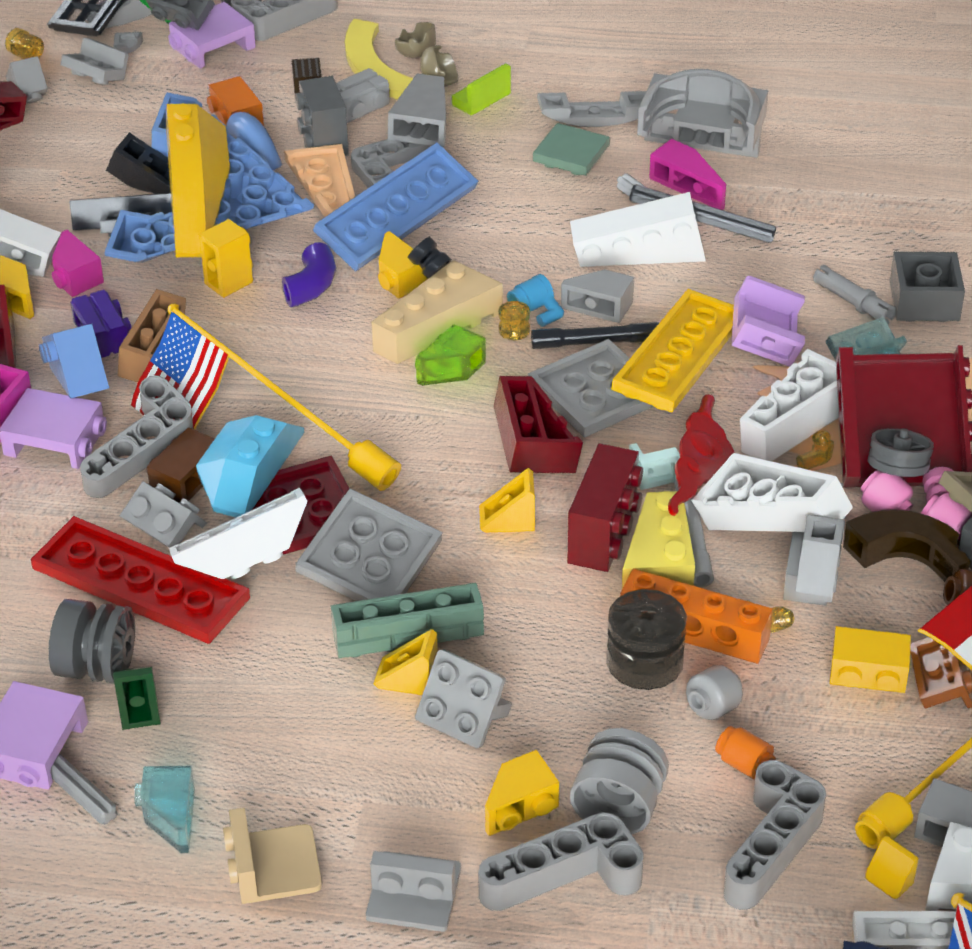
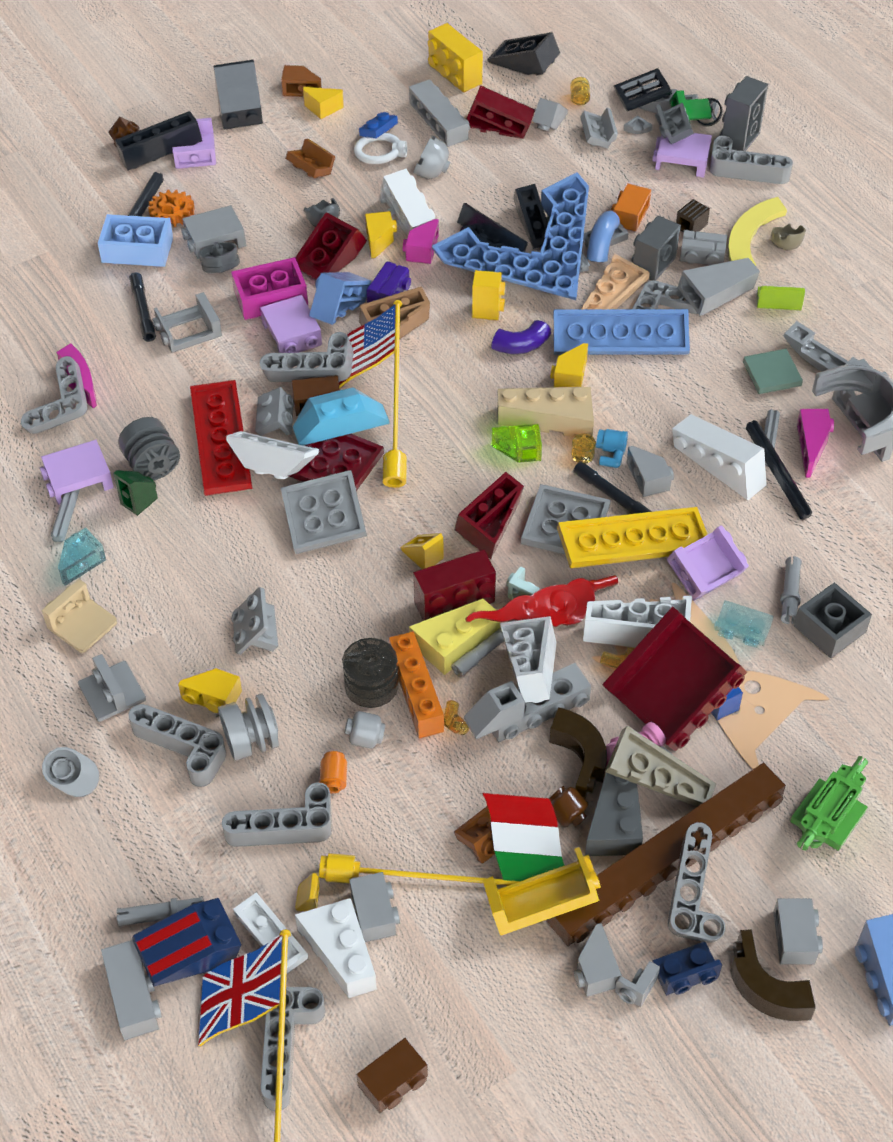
camera: 50 degrees right, 10 degrees up
(196, 171) = (531, 228): yellow wedge -> none
(397, 619) = (287, 561): sand green brick -> none
(408, 665) = (264, 580): yellow slope -> none
(428, 257) = (576, 374): black wheel -> none
(439, 64) = (774, 263): dark tan hair -> none
(870, 659) = (460, 787): yellow brick -> none
(886, 492) = (613, 714): bright pink head -> none
(900, 452) = (639, 698): dark grey wheel -> none

